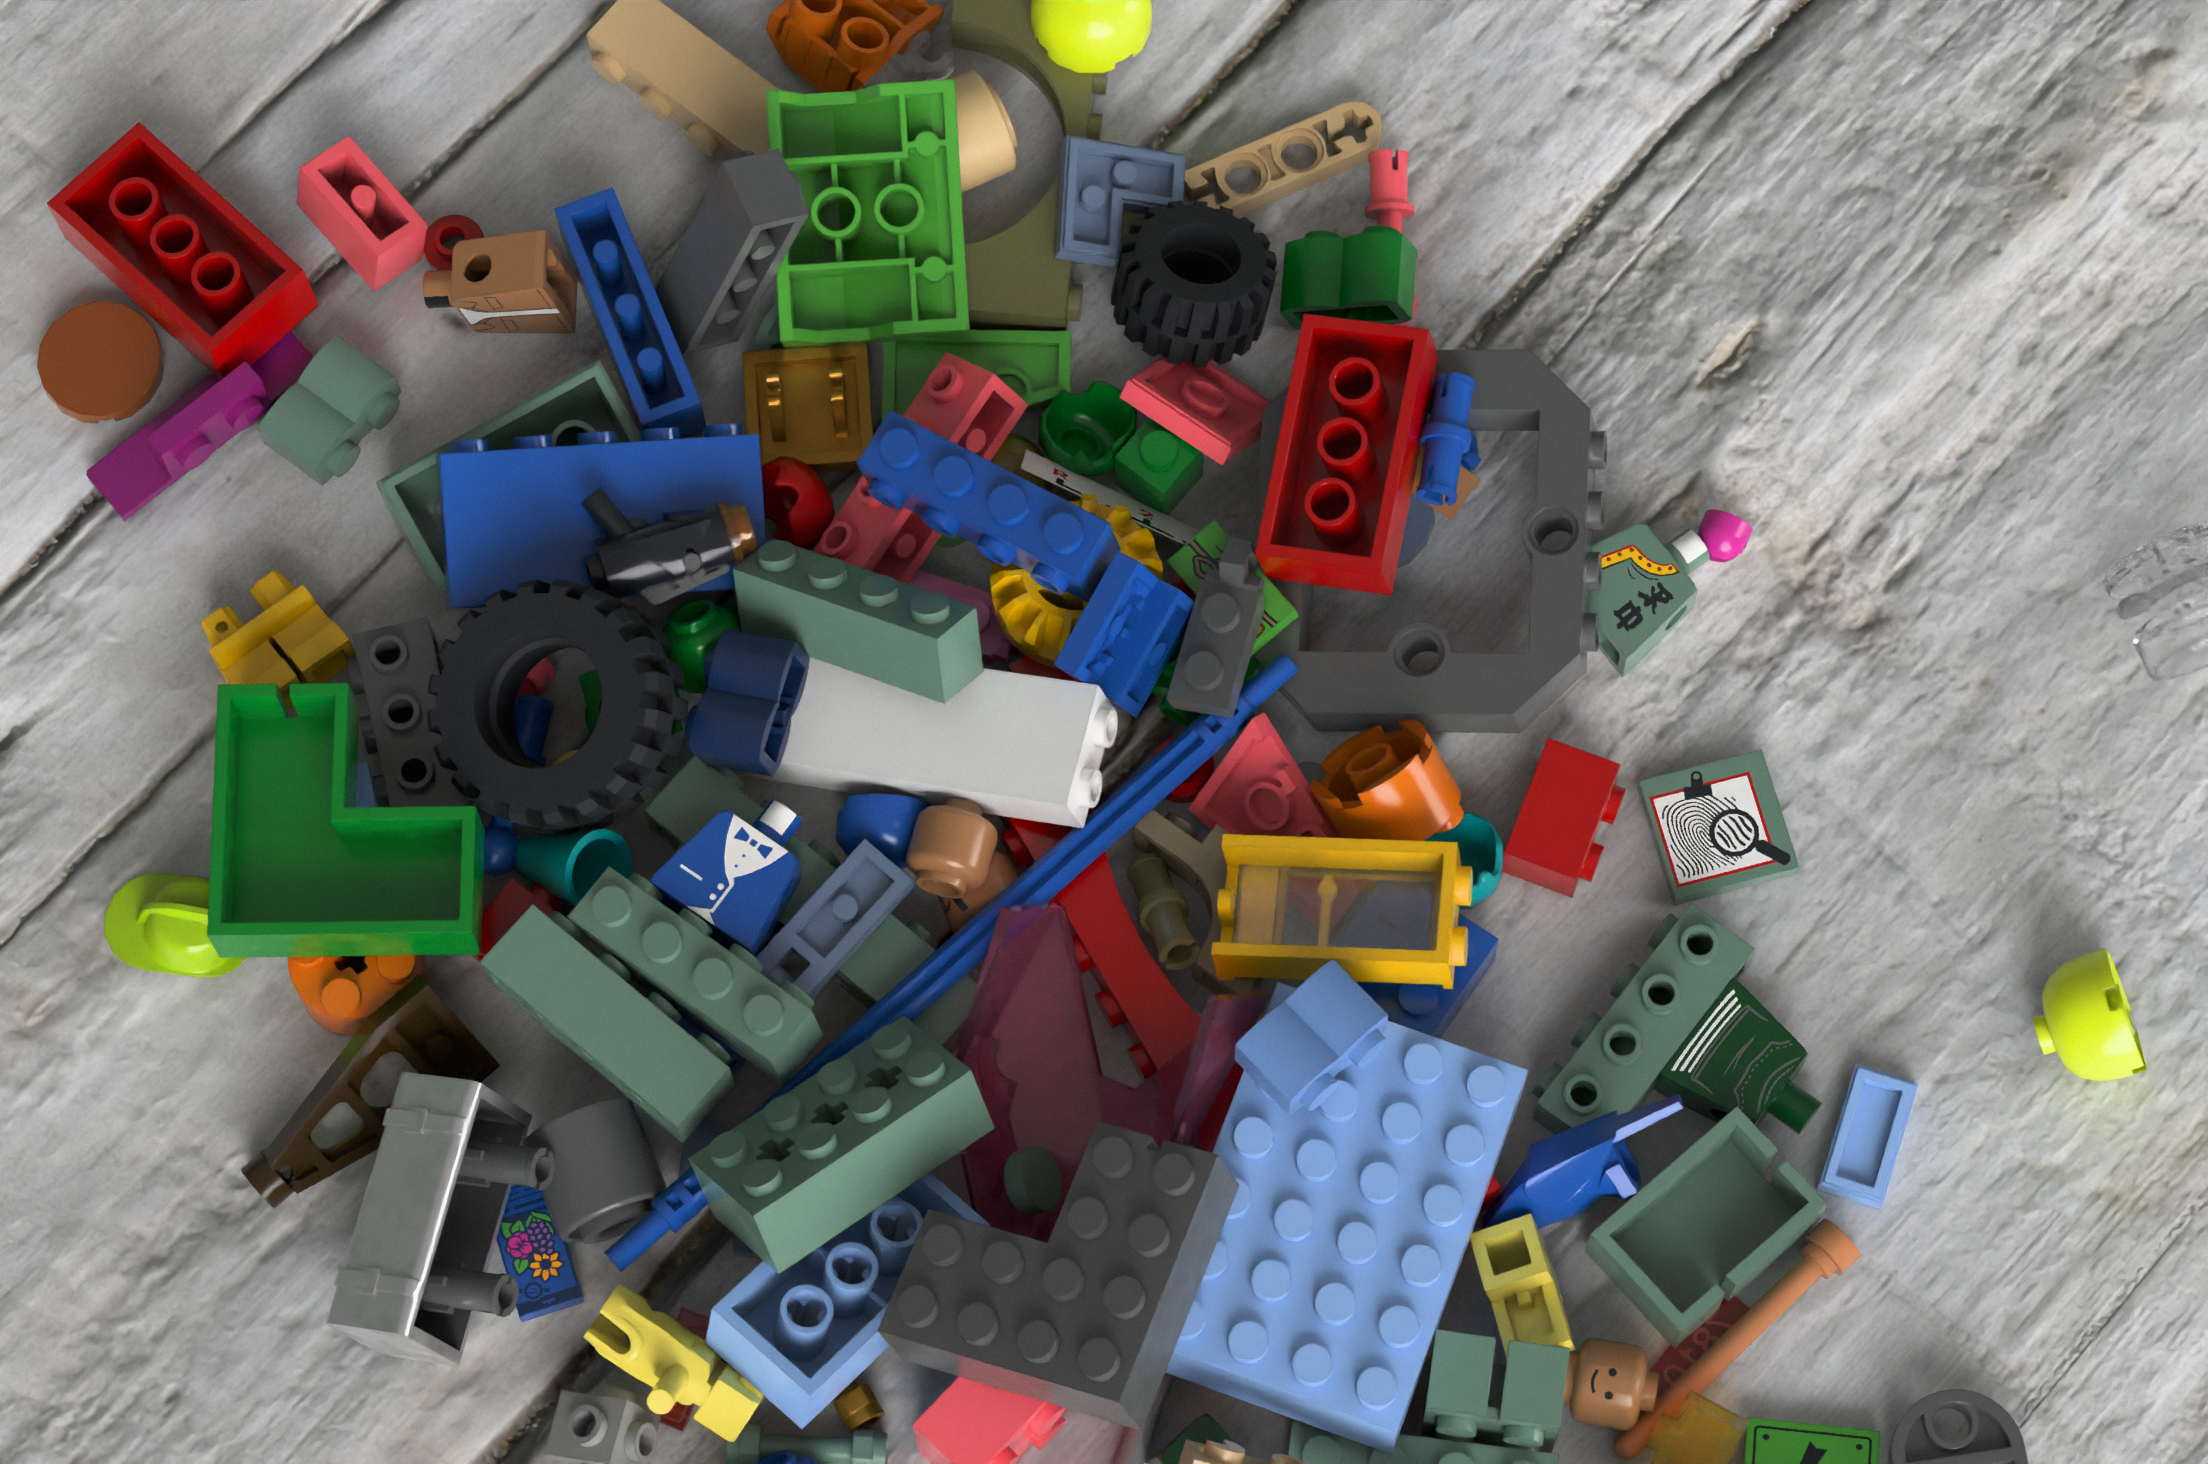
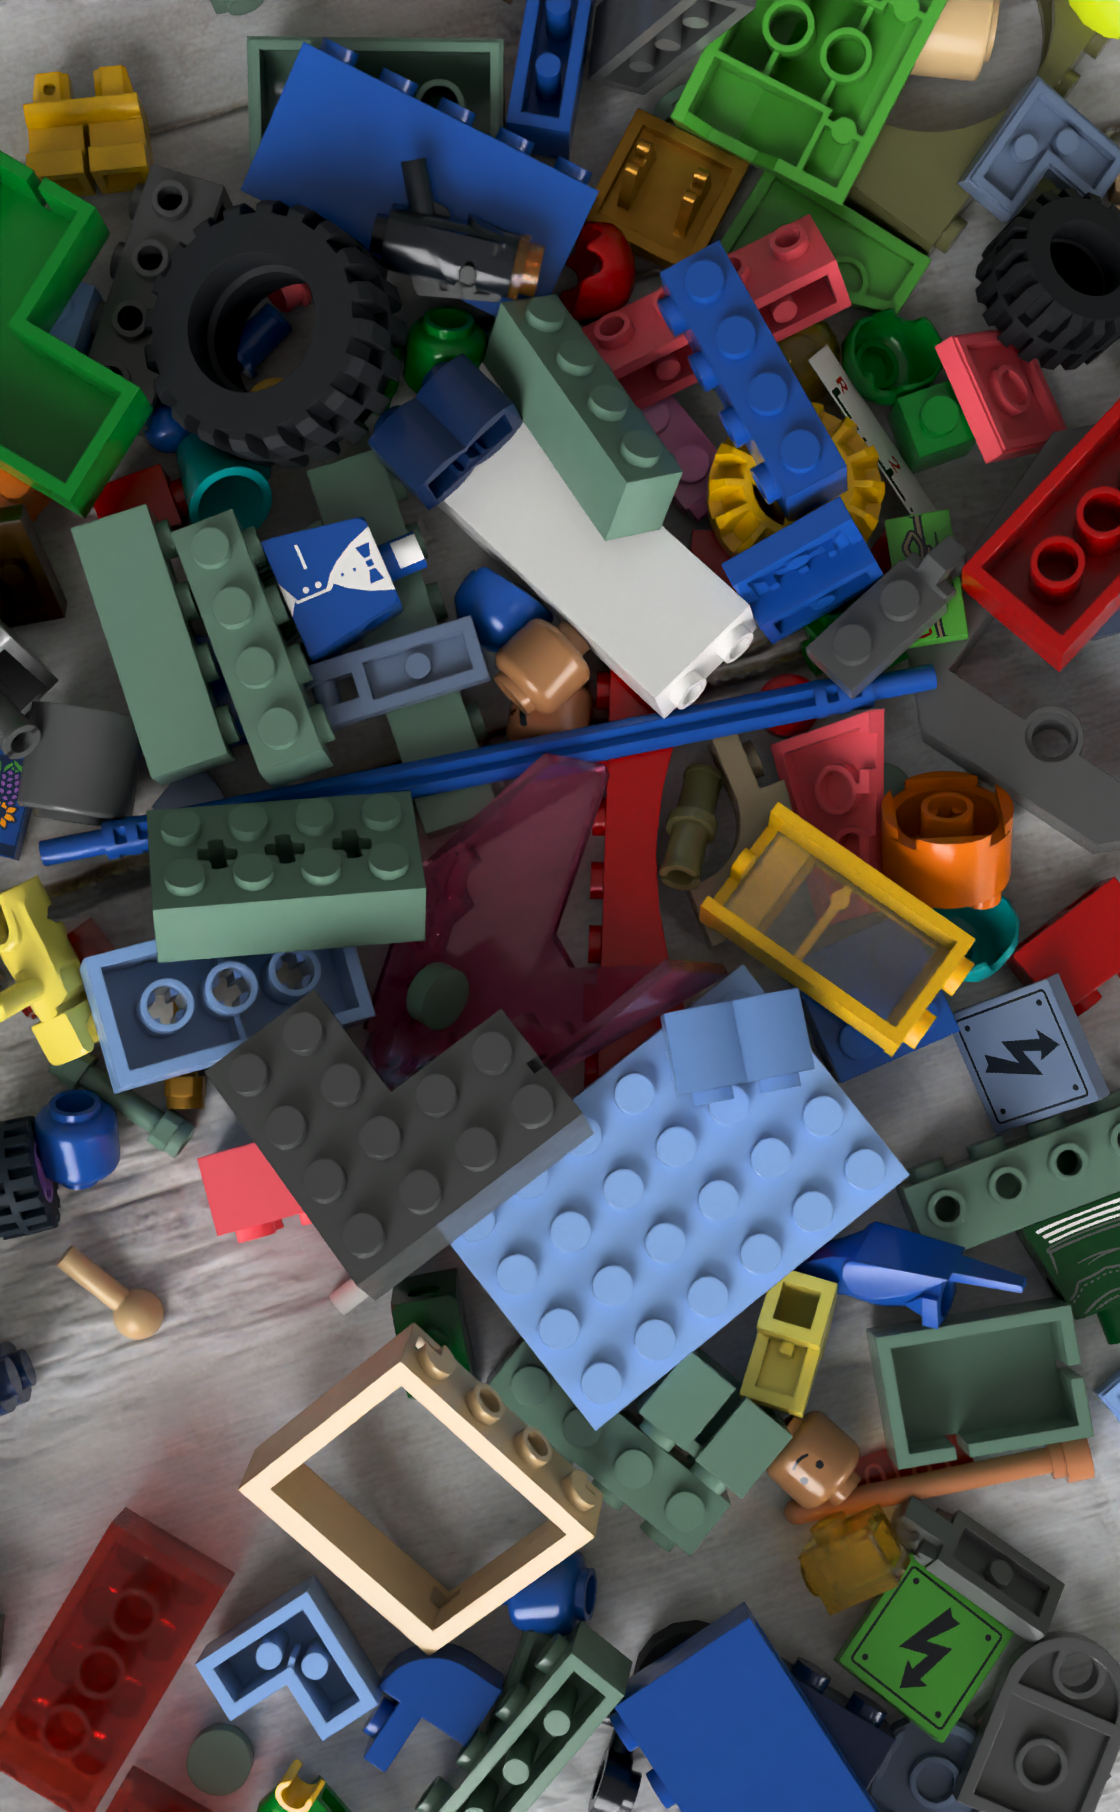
camera: 30 degrees right, 15 degrees up
(1570, 929) = (1028, 1054): none -> sand blue tile
(1811, 1390) = (980, 1567): none -> dark grey hinge

